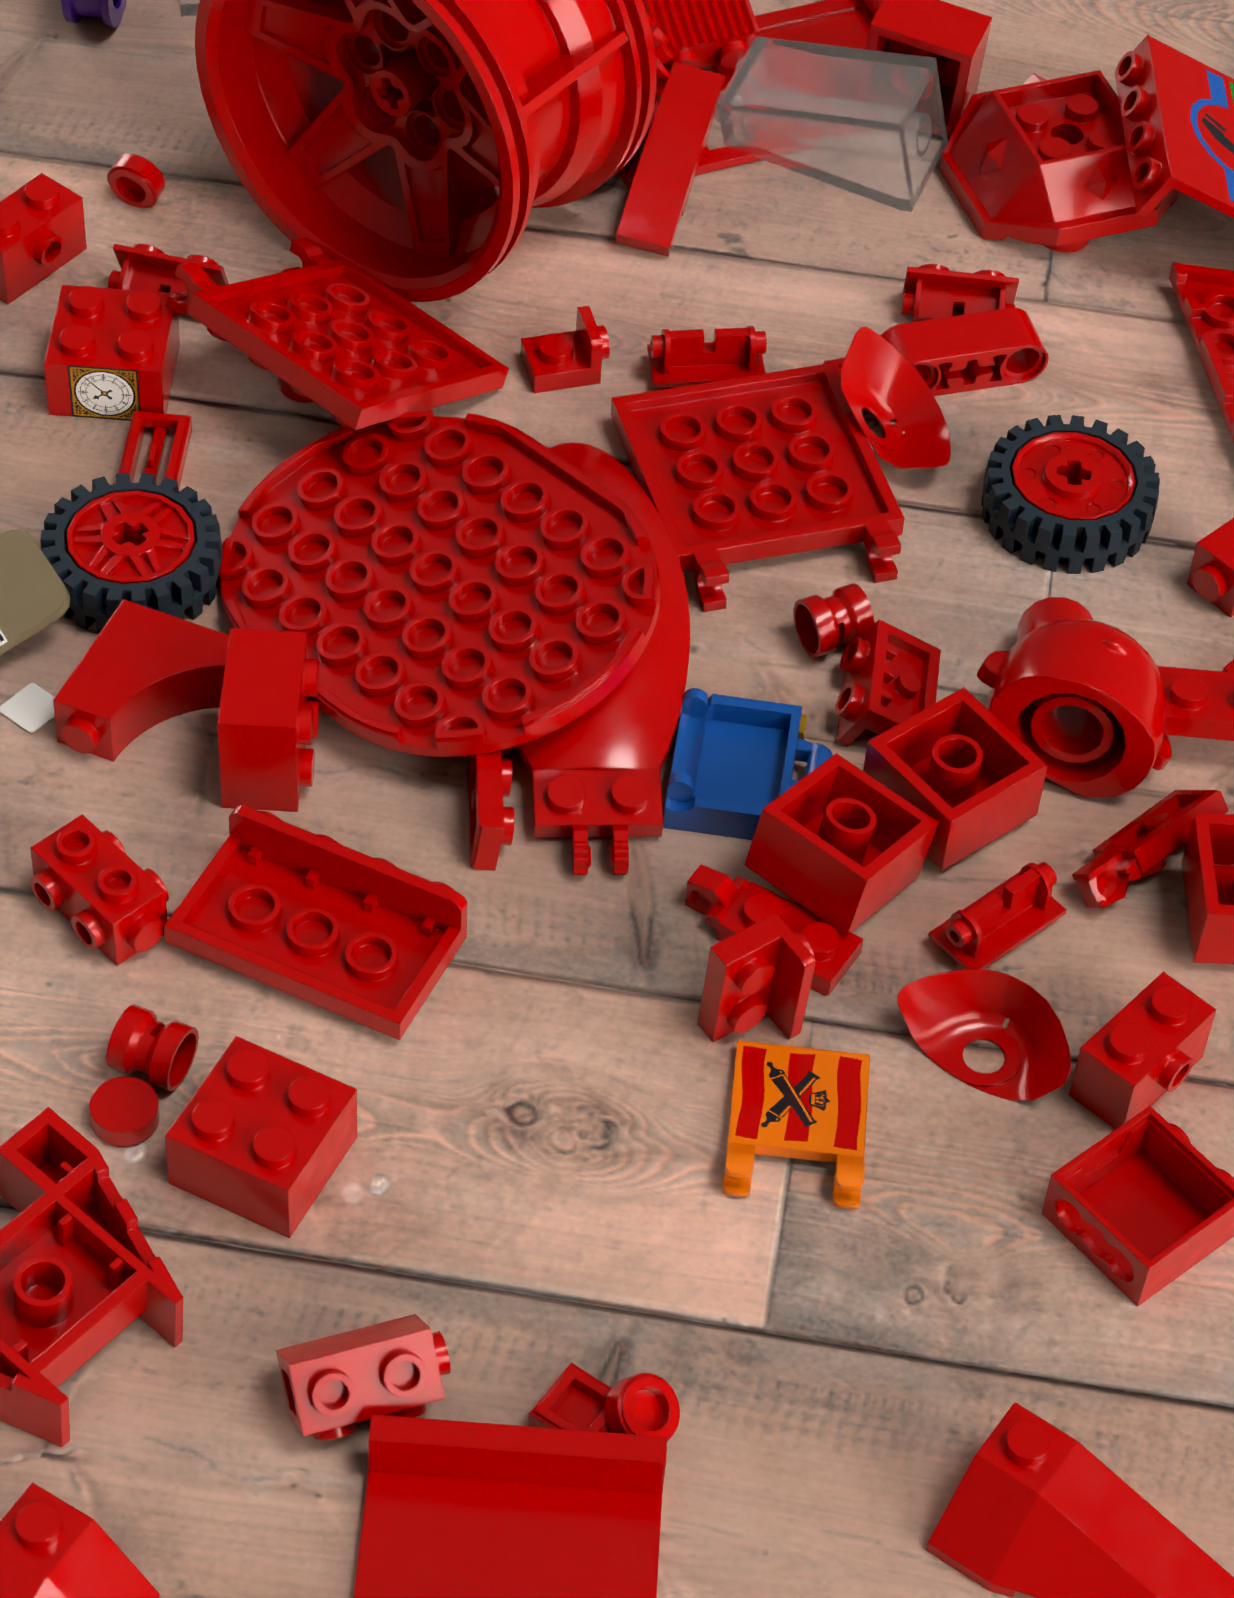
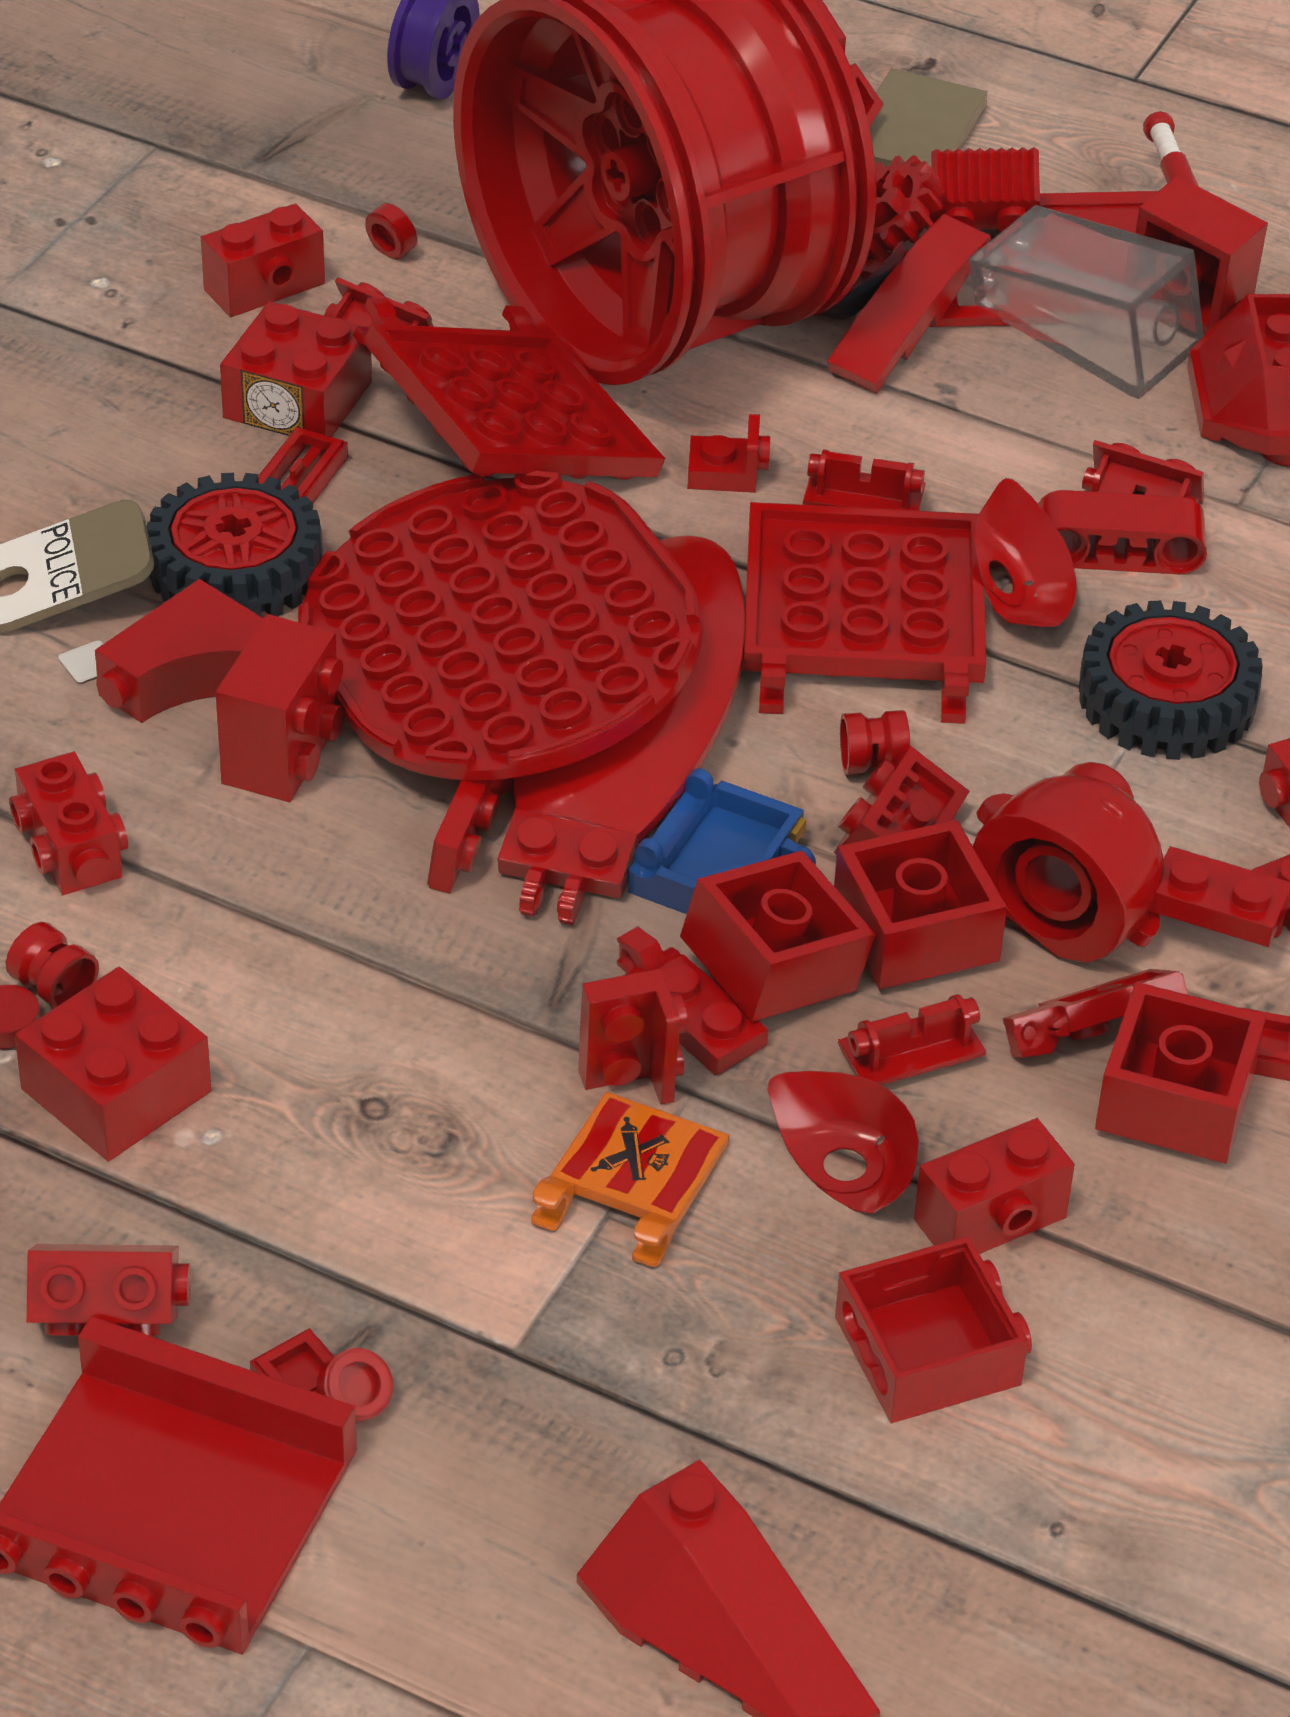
camera: 20 degrees right, 5 degrees down
(321, 922) = (258, 896): red bracket -> none

